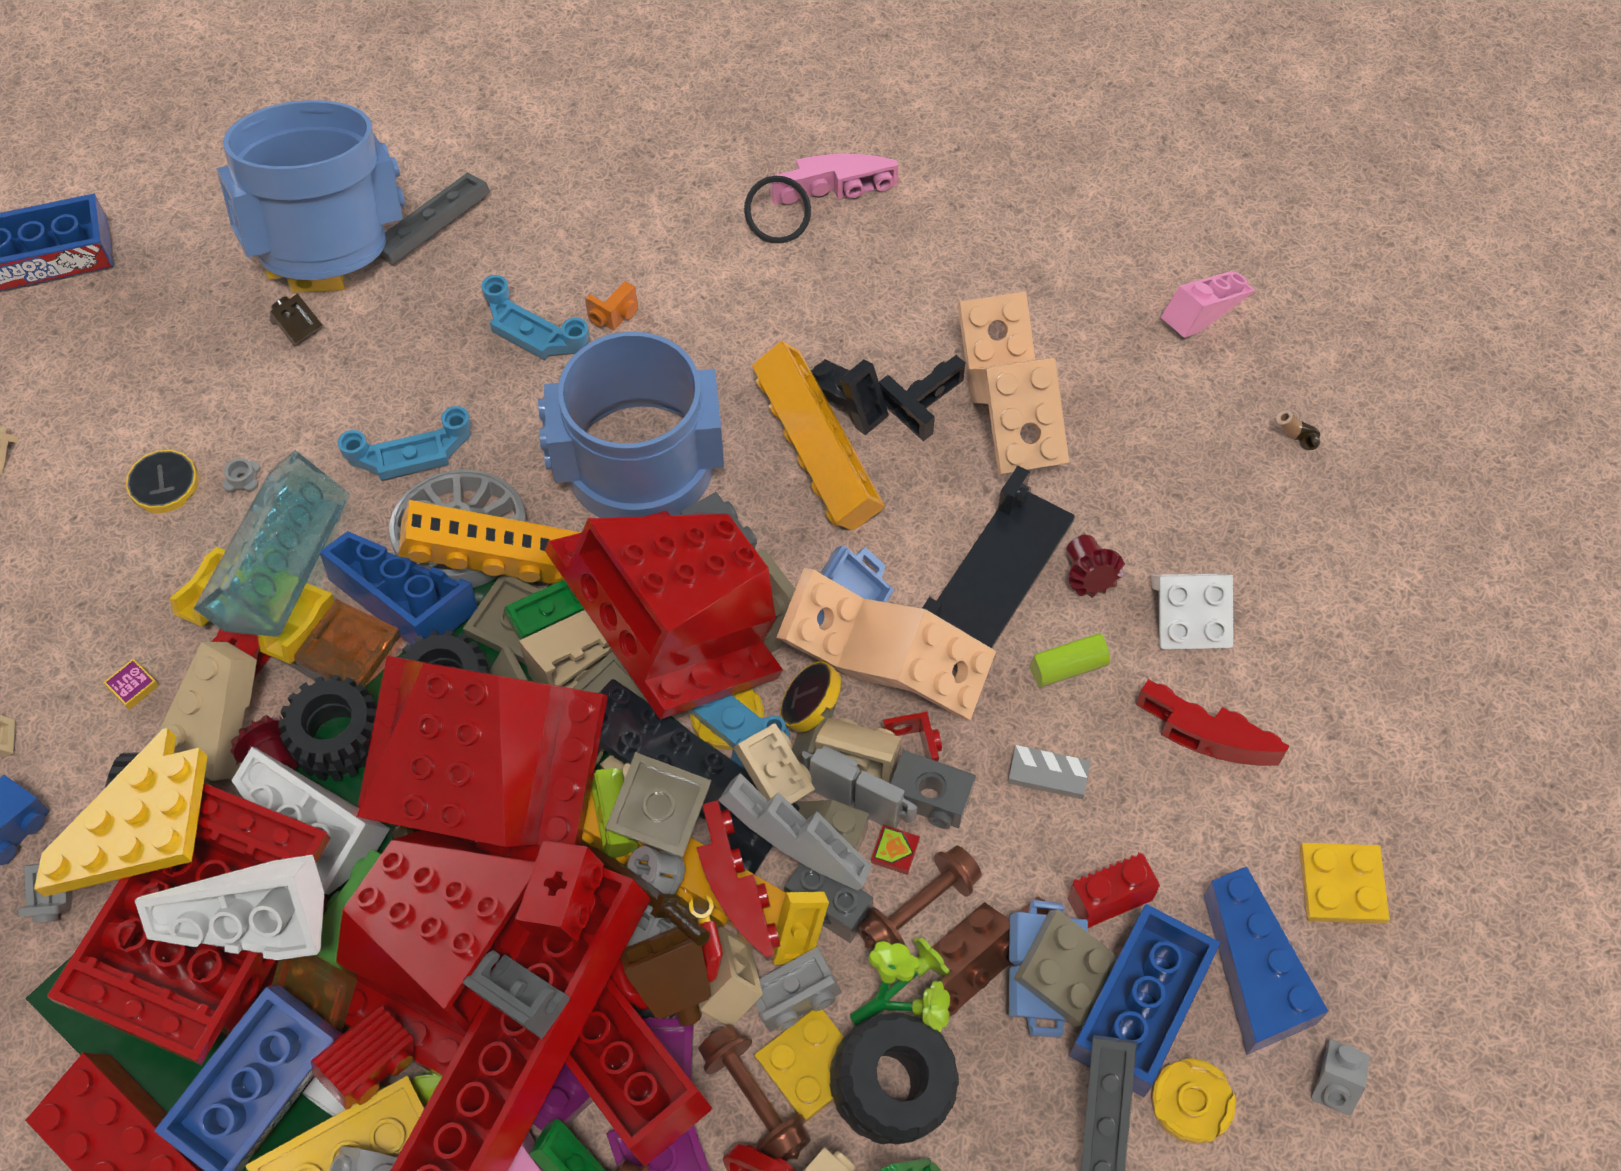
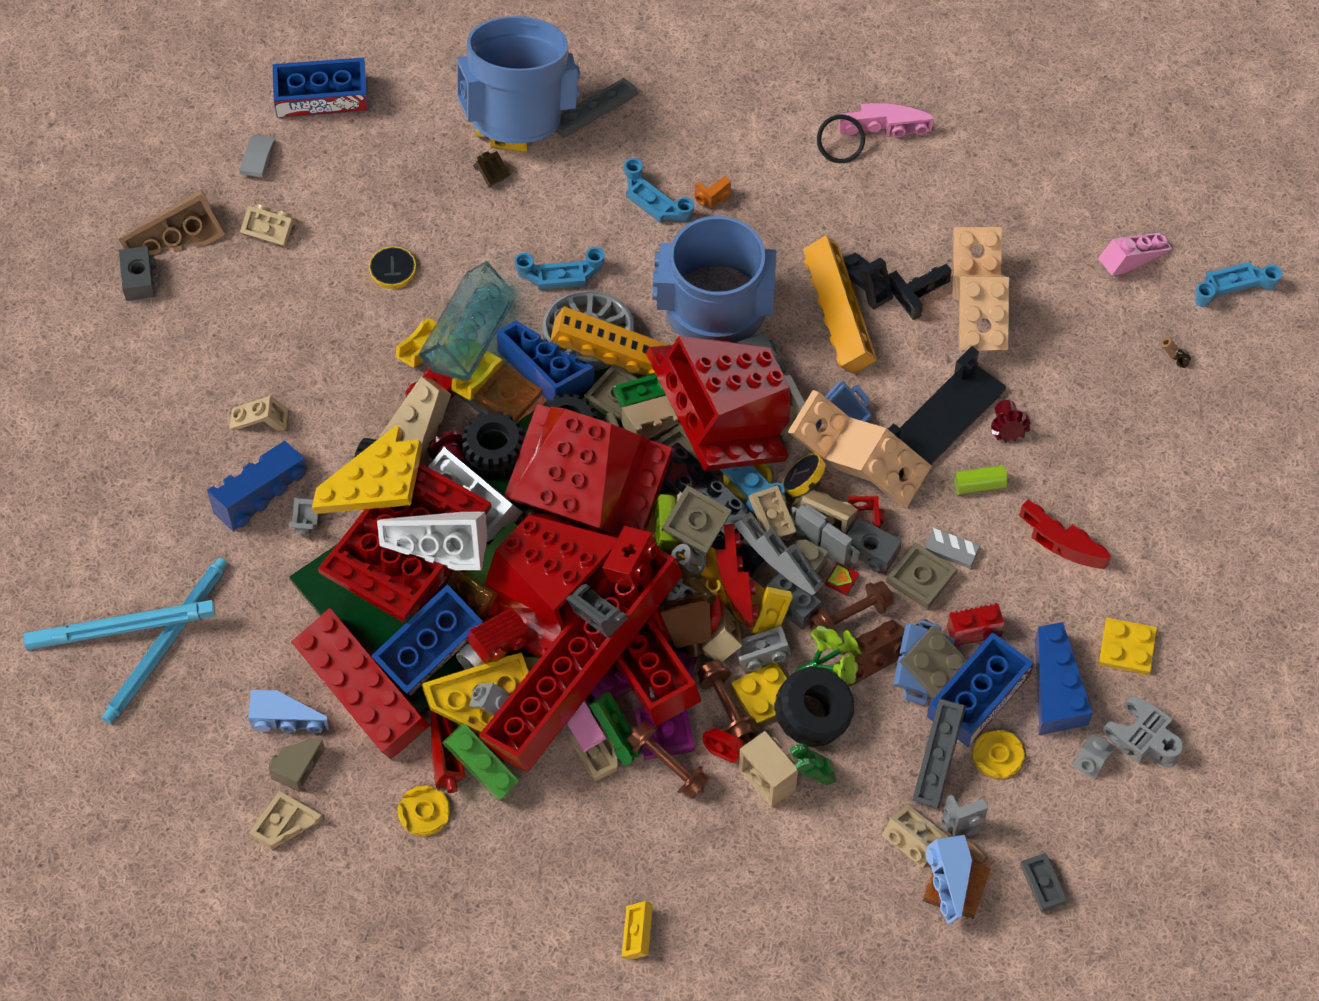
camera: 10 degrees right, 0 degrees up
(131, 684) = (363, 398): tile -> none
(238, 467) = (448, 266): light grey plate -> none
(1013, 824) = (921, 575): none -> dark tan plate
(1195, 610) = (1072, 462): white bracket -> none
(1353, 317) = (1236, 279): none -> dark azure plate
(1429, 1033) = (1147, 736): none -> light grey piece

